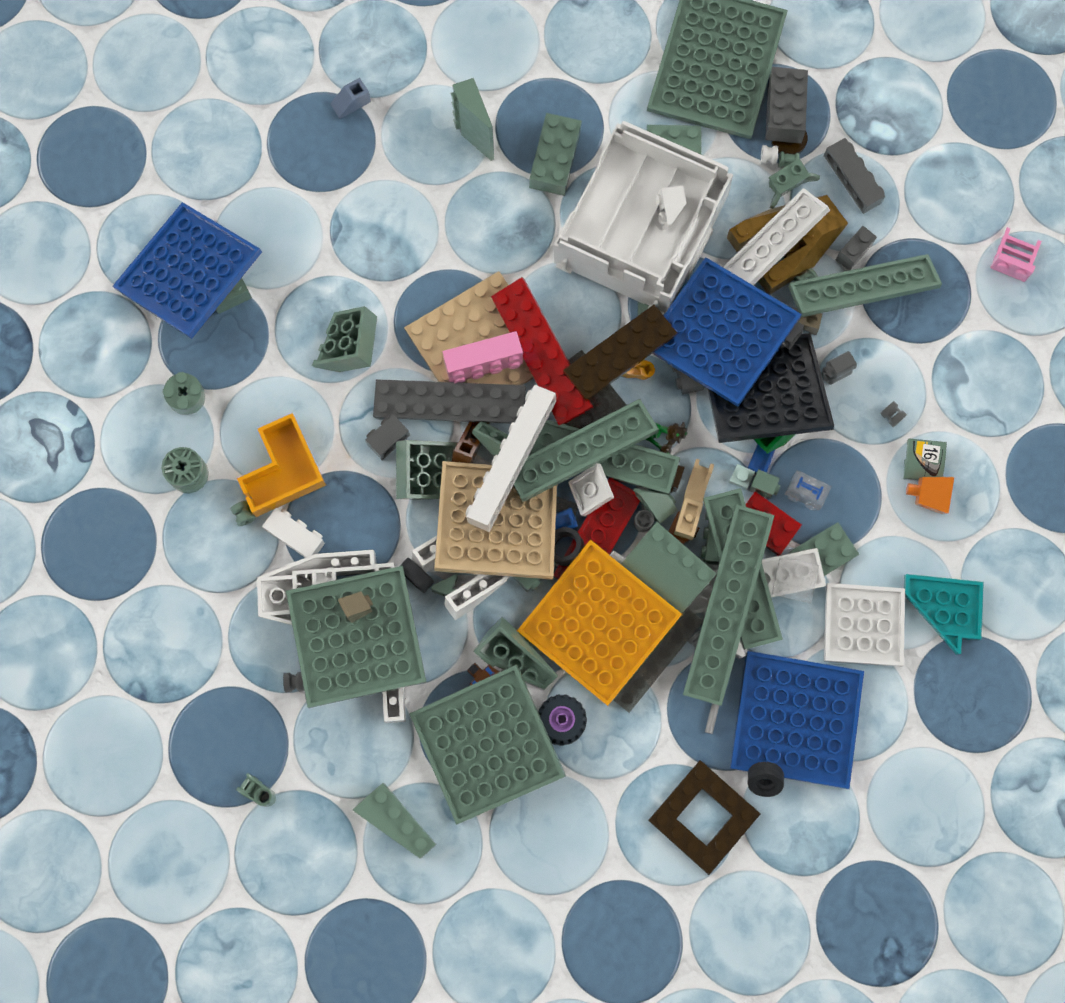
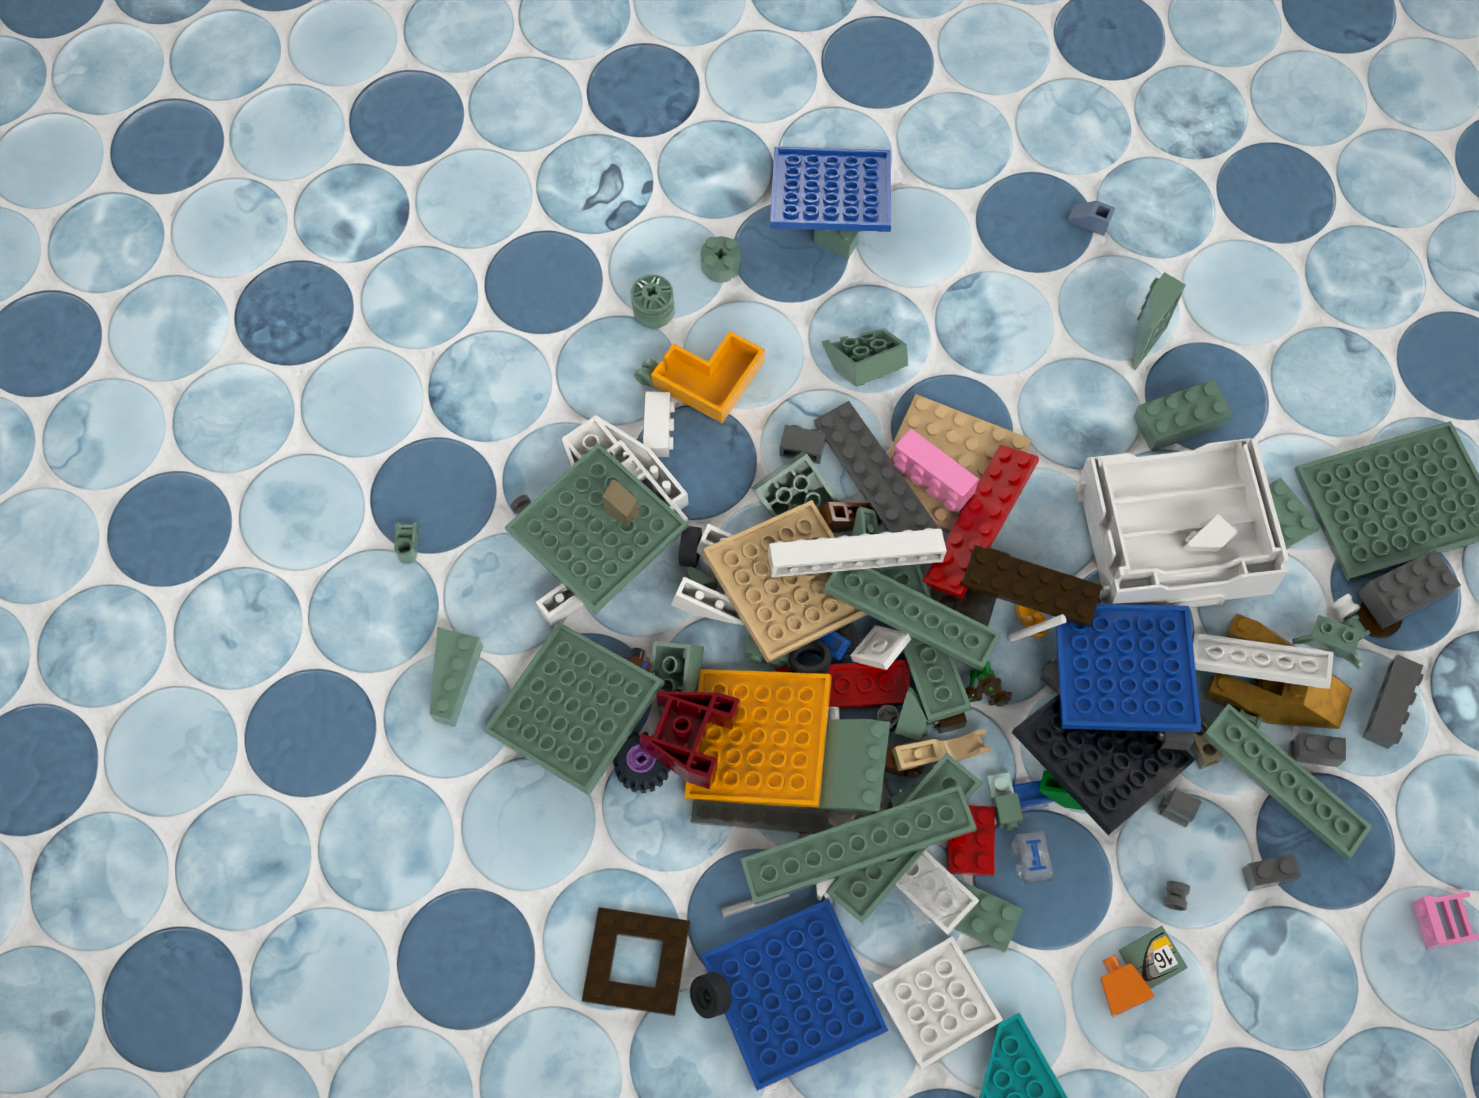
camera: 60 degrees right, 10 degrees down
(565, 674) = (683, 730): none -> dark red wedge
(650, 370) = (1061, 619): none -> white bar
(917, 341) = (1271, 872): none -> dark grey brick

